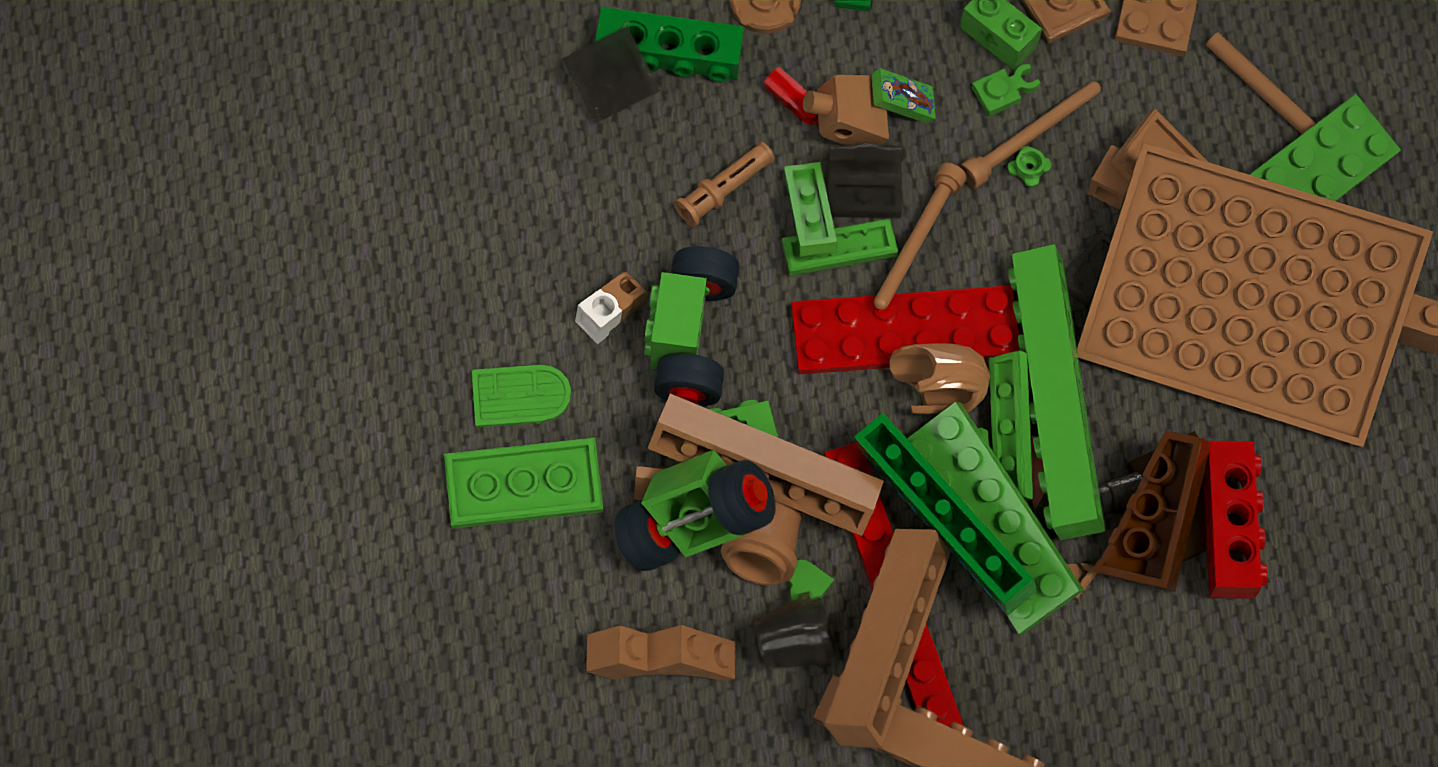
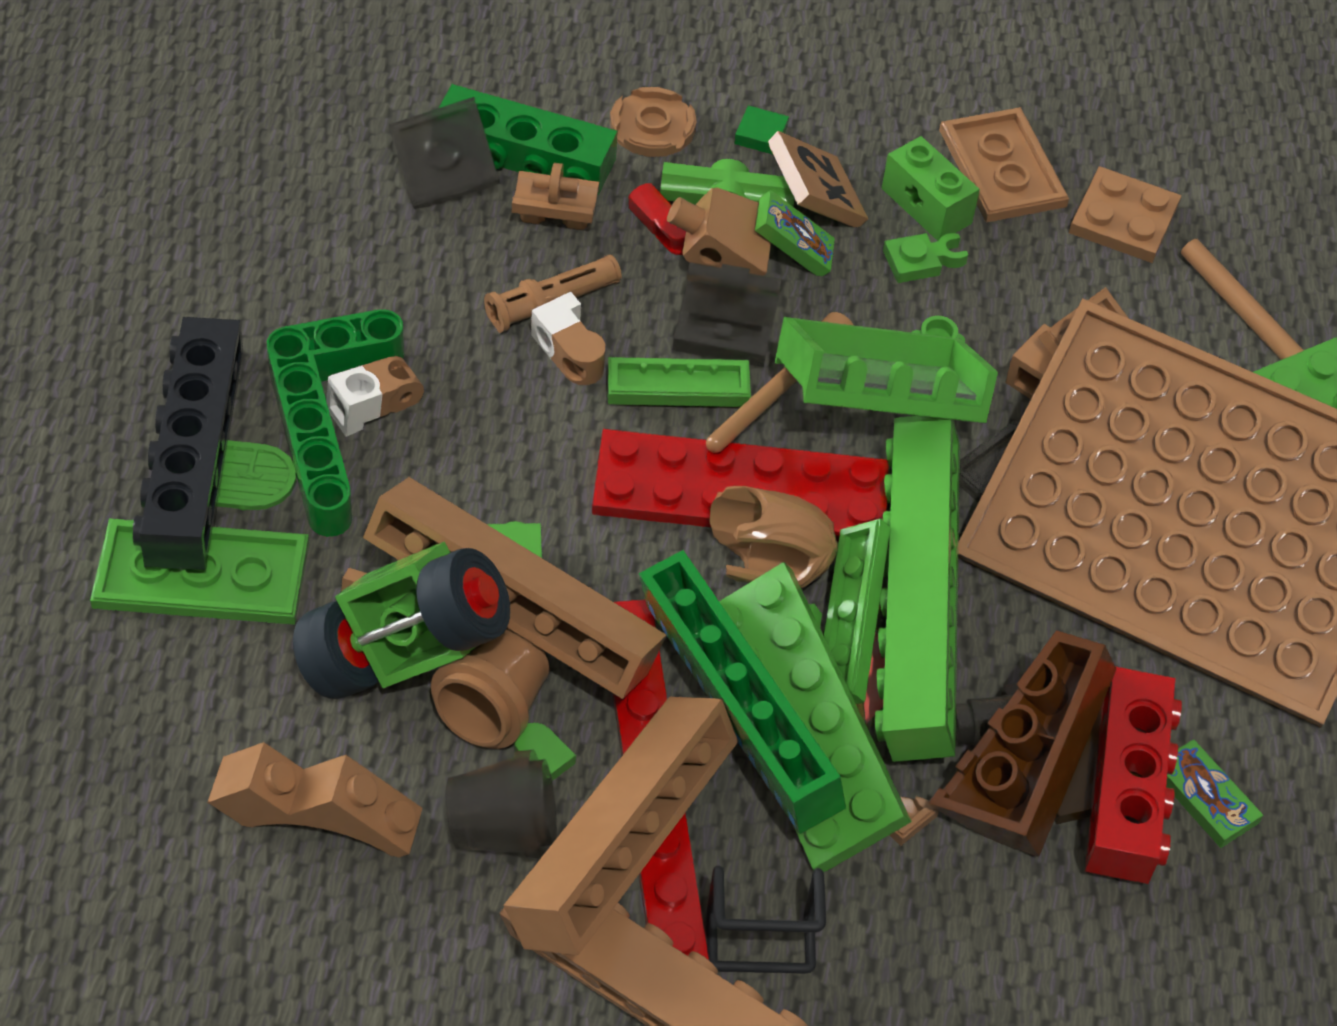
camera: 10 degrees right, 15 degrees down
(482, 291) = (191, 444): none -> black brick
(570, 330) = (298, 363): none -> green beam
(677, 320) = (456, 408): brick -> none
(707, 97) = (555, 197): none -> medium nougat hips
(747, 229) = (567, 341): none -> leg
(810, 209) = (650, 330): bright green plate -> none
(839, 56) = (727, 174): none -> bright green piece
(910, 39) = (817, 180): none -> medium nougat tile
(980, 167) = (952, 302): medium nougat piece -> none
(1000, 217) = (886, 370): none -> bright green window
(1027, 691) = (715, 918): none -> black piece
(1289, 519) = (1211, 795): none -> tile

